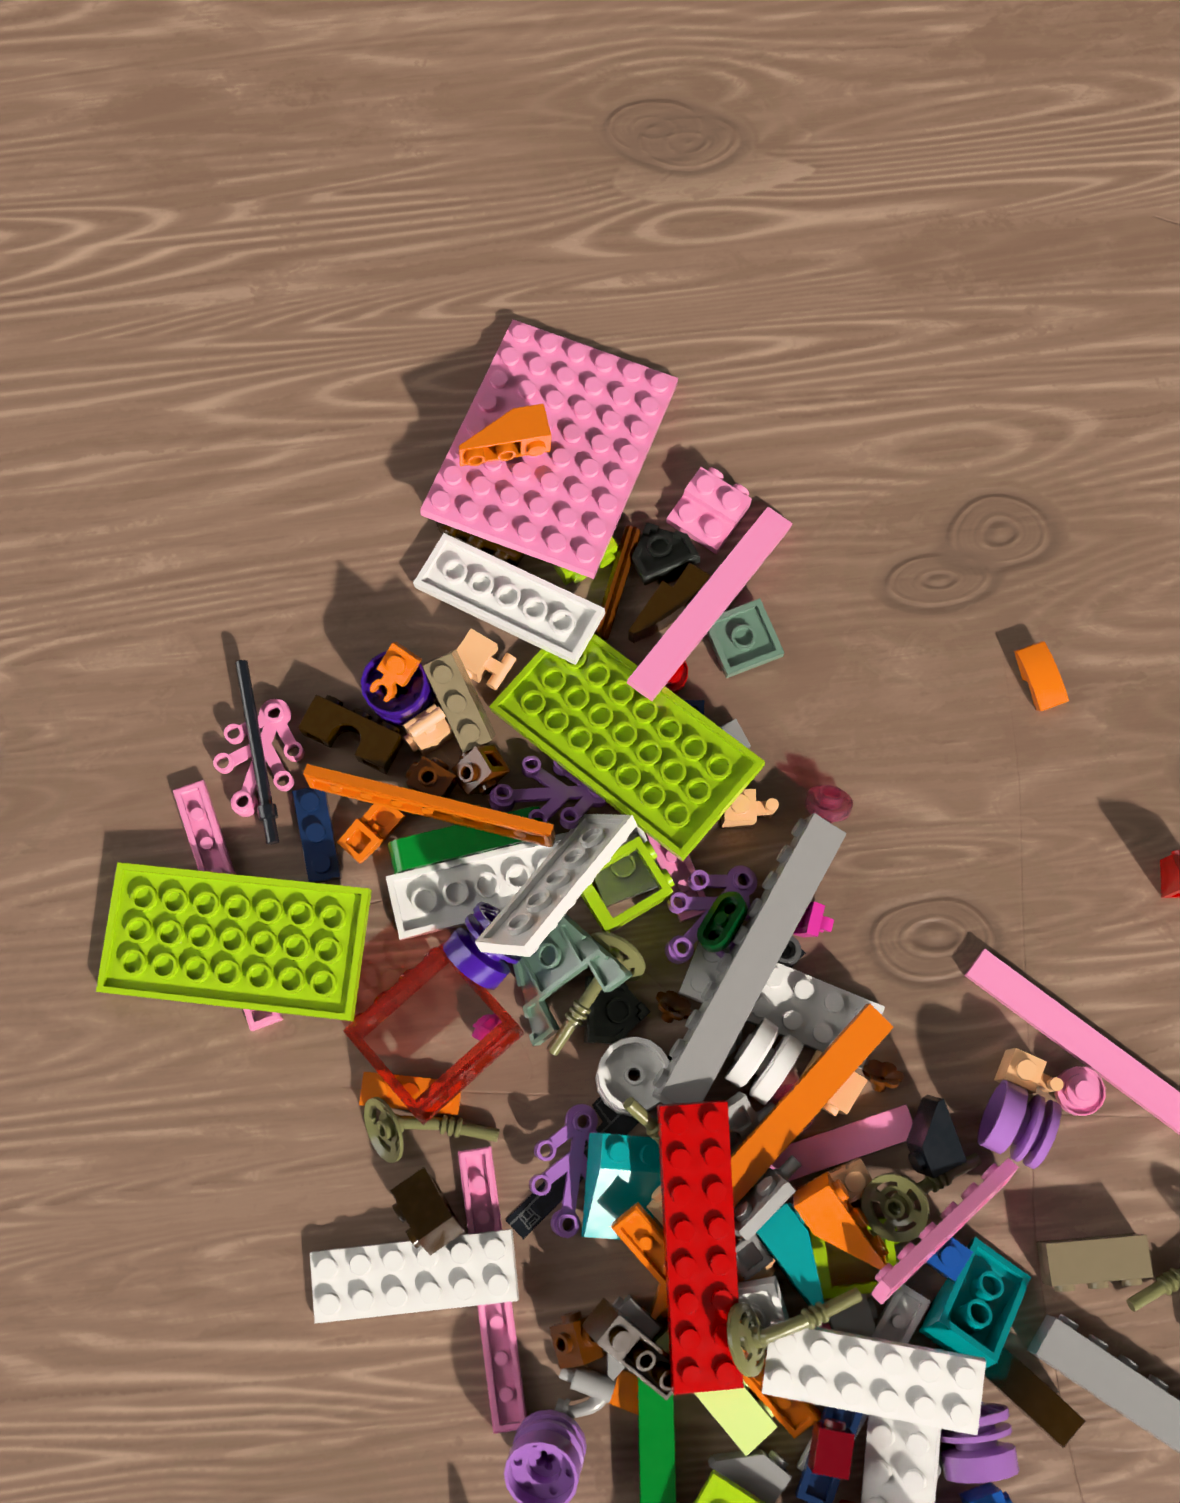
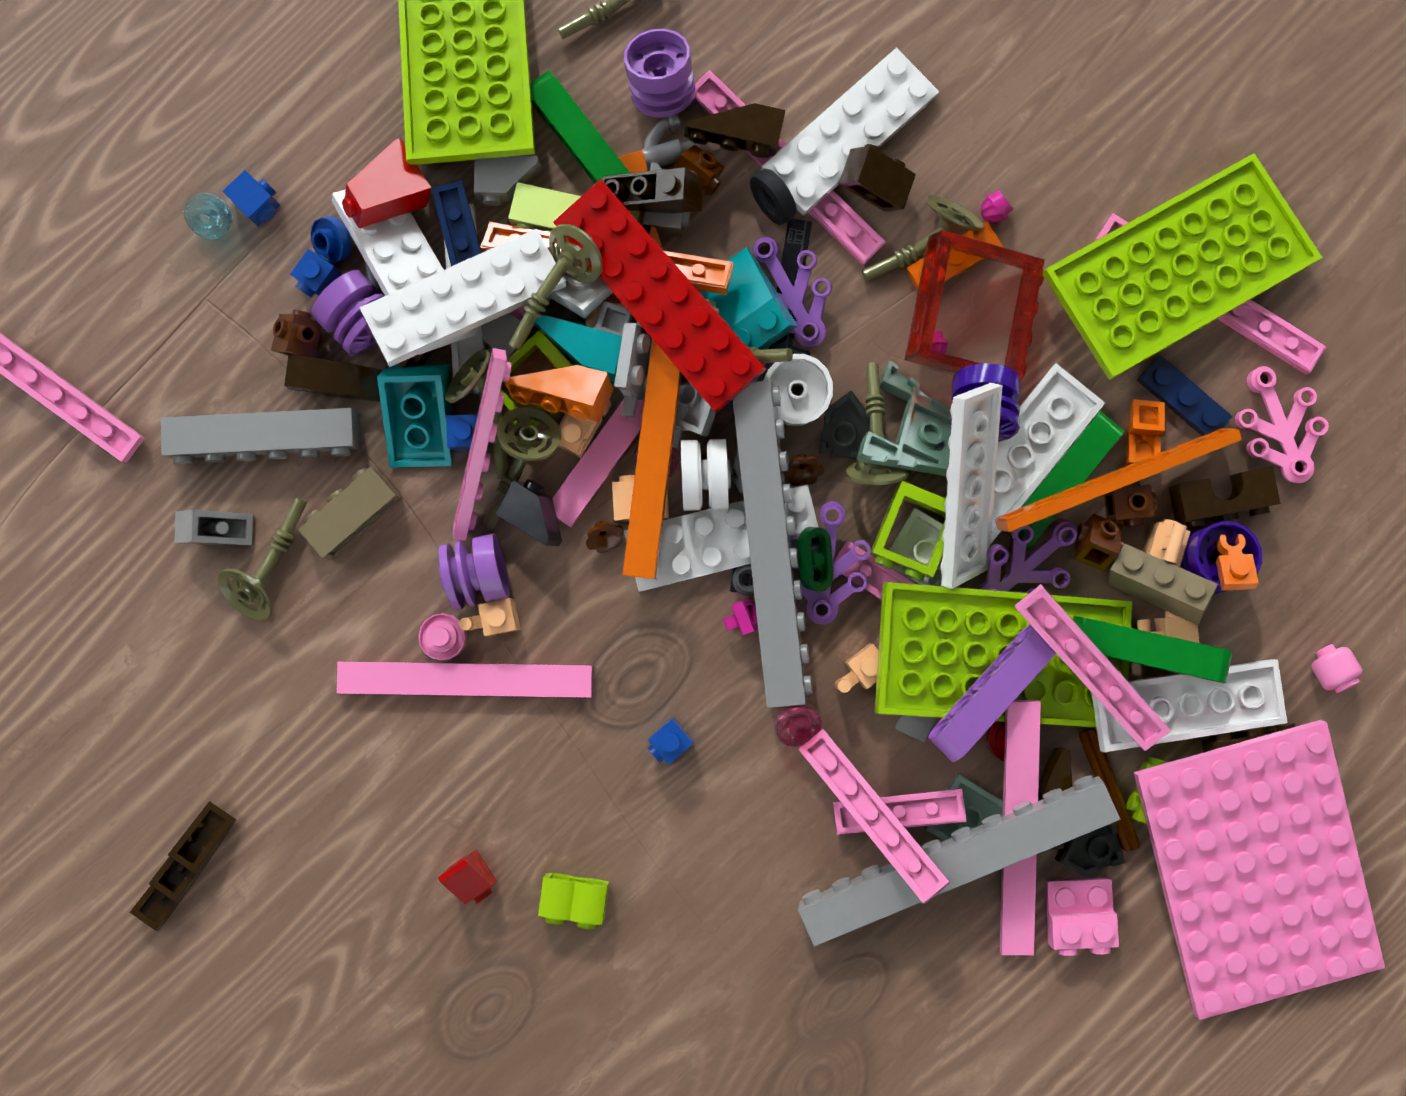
camera: 150 degrees right, 10 degrees up
(267, 810) = (1240, 385): black bar -> none
(342, 1109) = (995, 207): none -> dark pink plate
(373, 544) = (1336, 668): none -> bright pink head
(504, 1348) = (746, 128): none -> dark brown slope
(510, 658) = (1158, 650): none -> green beam
(513, 435) = (1304, 847): orange slope -> none
(527, 1265) = (773, 196): none -> black tyre
(569, 675) = (1092, 667): none -> bright pink plate
(659, 712) = (991, 694): none -> medium lavender beam
(780, 611) = (961, 858): none -> light grey brick
(795, 680) = (911, 810): none -> bright pink tile
(822, 690) = (874, 817): none -> bright pink plate
(831, 1449) = (459, 226): dark red brick -> none
(914, 1298) = (471, 378): none -> olive dish
(943, 865) = (669, 741): none -> blue brick
(1042, 675) = (697, 971): orange slope -> none
(1042, 1463) = (296, 334): none -> reddish brown brick
(1107, 799) = (573, 899): none -> lime brick

